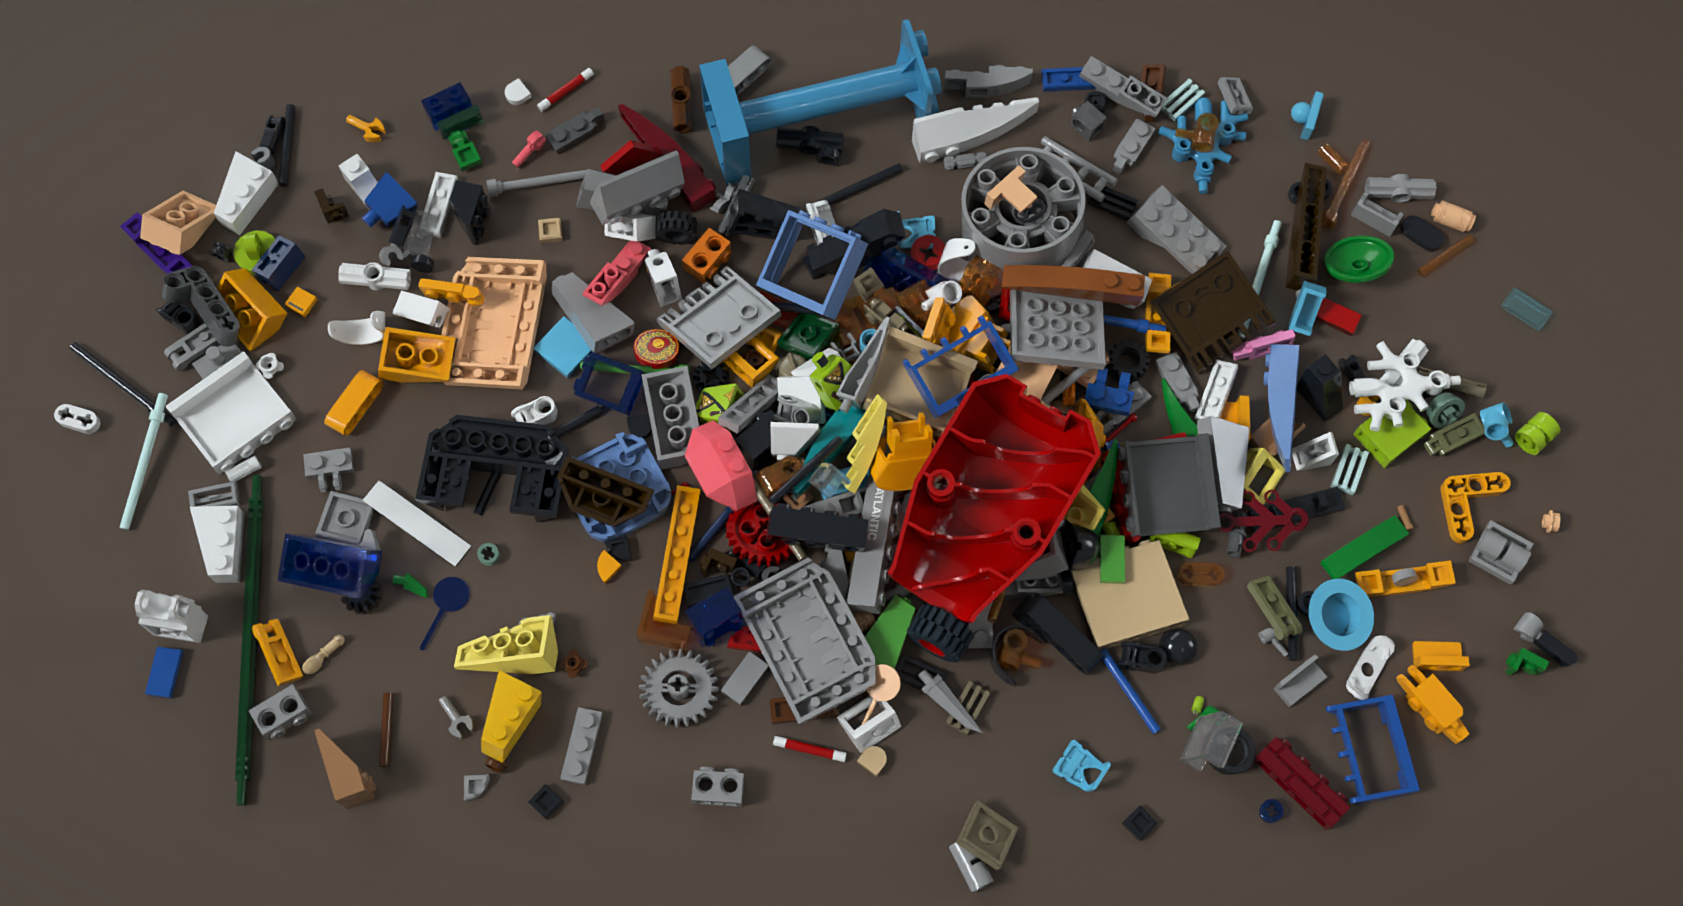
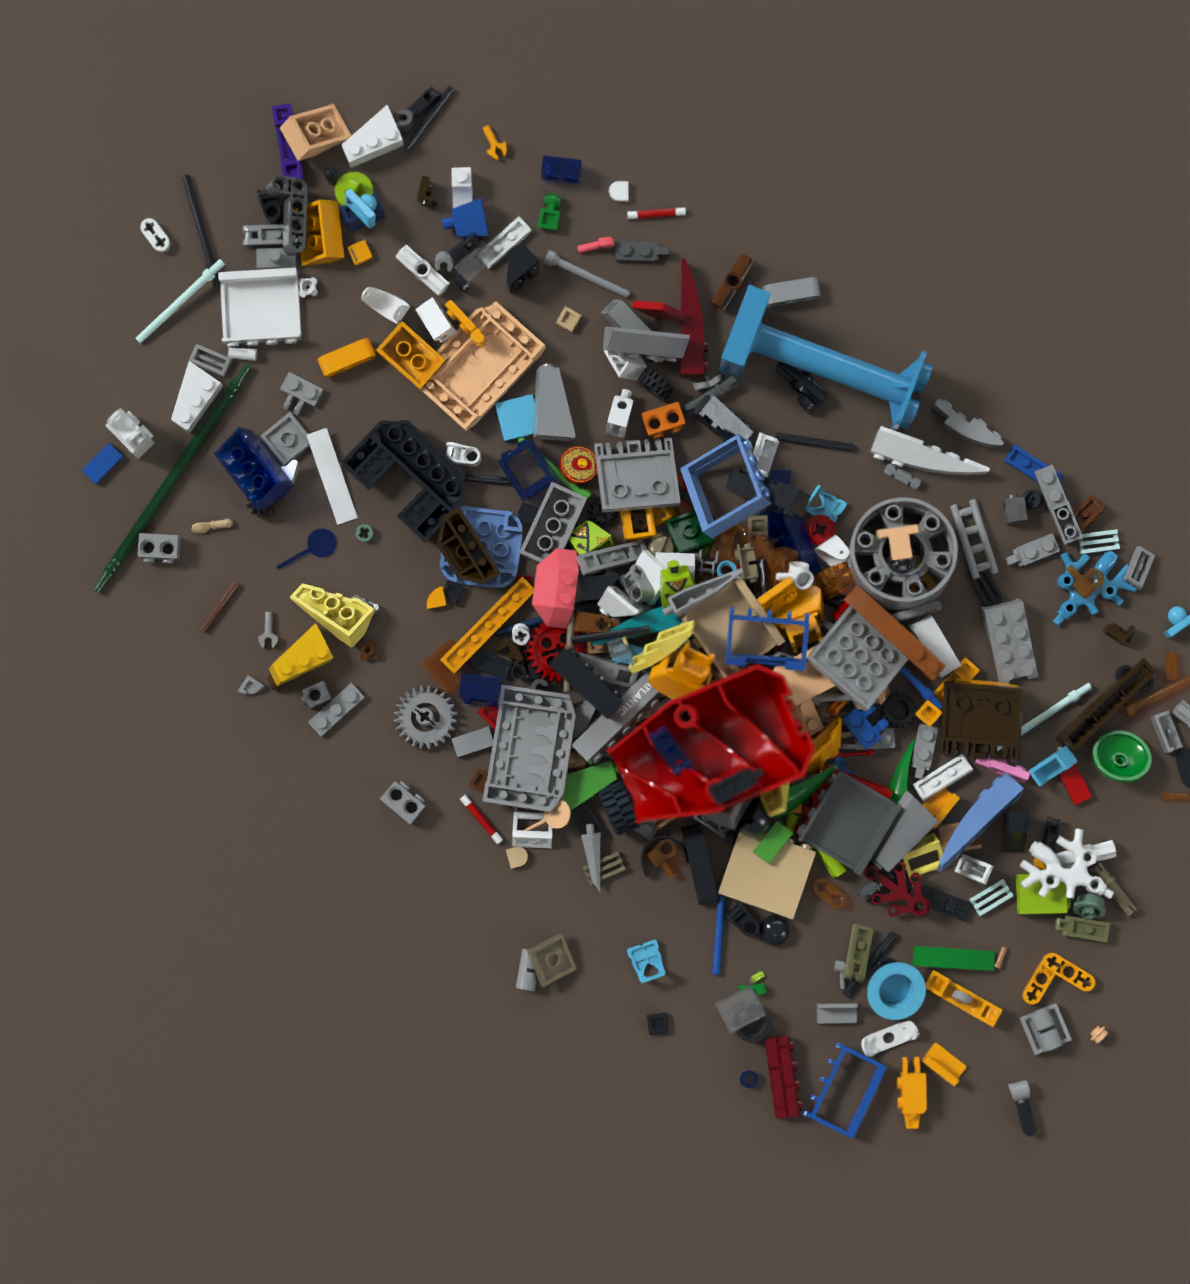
camera: 40 degrees right, 15 degrees up
(272, 252) = (362, 206): none -> medium azure tile
(277, 652) = (183, 503): light orange plate -> none
(348, 781) = (173, 621): medium nougat slope -> none
(411, 584) = (299, 517): green bar -> none
(460, 121) = (562, 188): clear green tile -> none
(487, 492) = (393, 487): black bar -> none
(545, 801) = (288, 729): black tile -> none
(550, 733) = (324, 691): none -> flat silver brick
(618, 274) = (588, 391): coral slope -> none
(723, 538) = (516, 637): none -> white bush
(951, 526) = (670, 750): none -> clear blue plate
(1041, 509) = (735, 784): none -> black hinge
(1264, 162) = (1115, 632): none -> dark brown bracket
(1496, 423) = (1118, 940): medium azure piece -> none
(1527, 661) = (999, 1113): green bracket -> none
(1537, 433) = (1141, 968): lime wheel -> none

